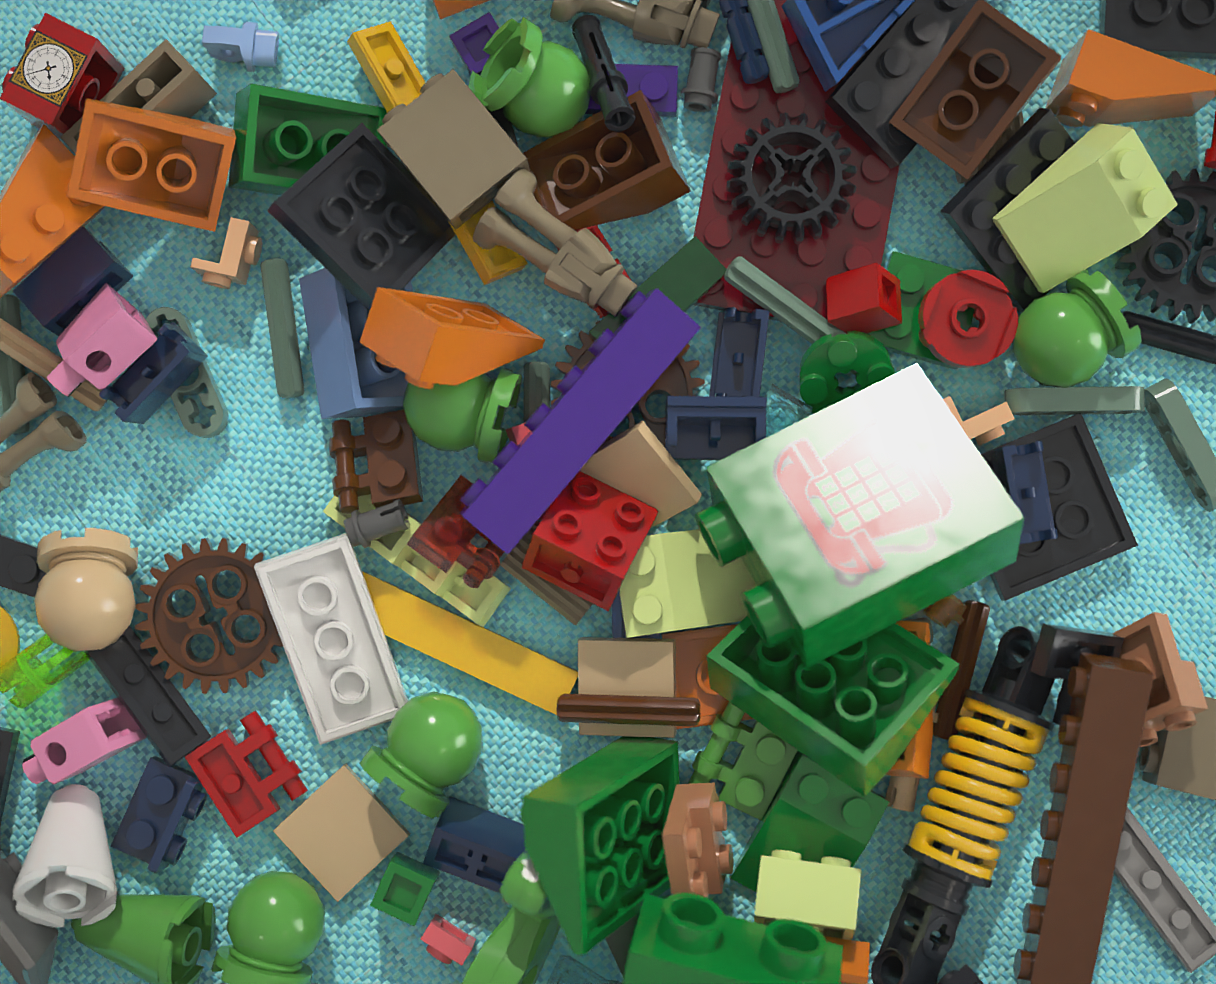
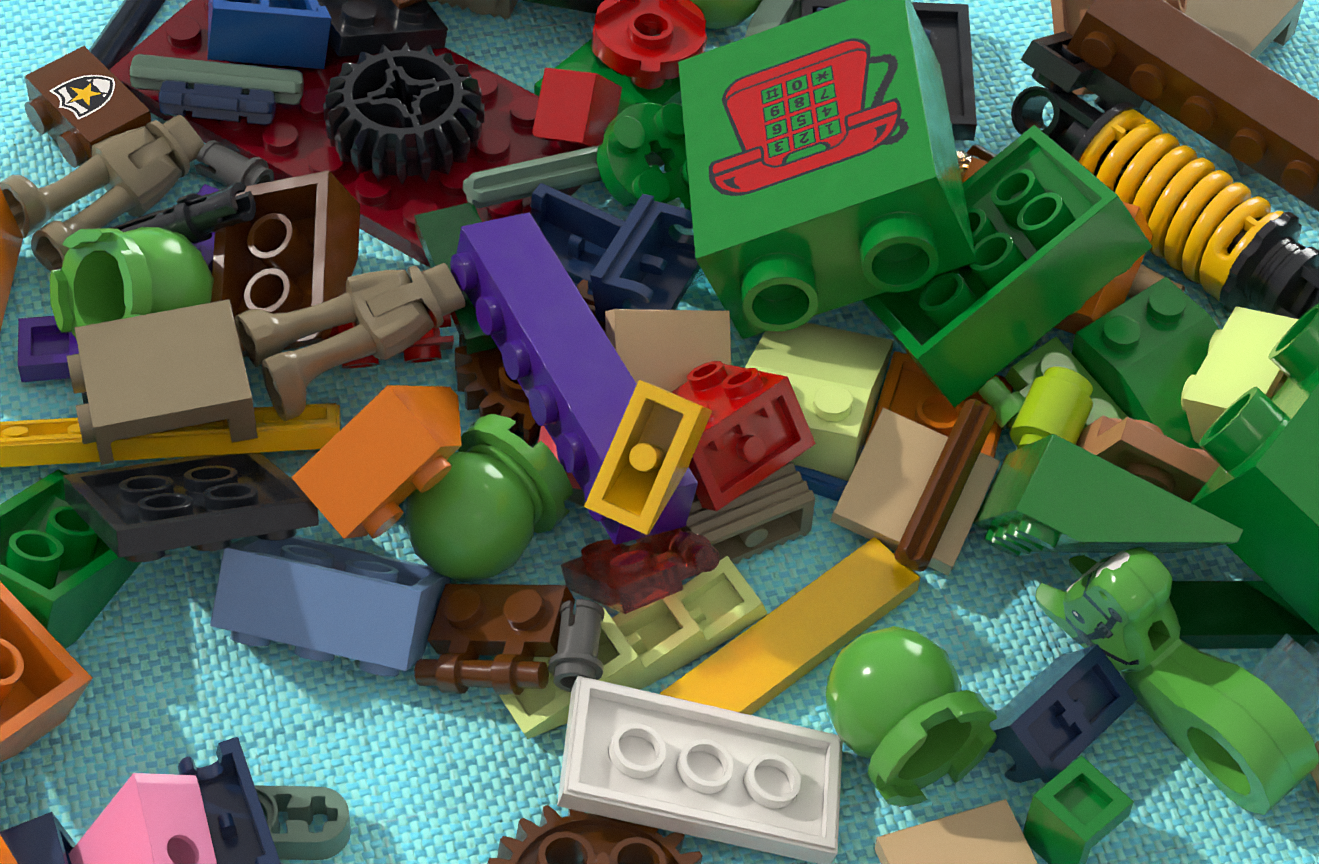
camera: 75 degrees left, 35 degrees down
(239, 251) = (135, 692): light nougat bracket -> none
(282, 328) = (257, 688): sand green axle -> none
(447, 941) = (1166, 802): coral plate -> none
(491, 519) = (647, 457): none -> yellow slope
(710, 766) = (1054, 405): none -> lime brick

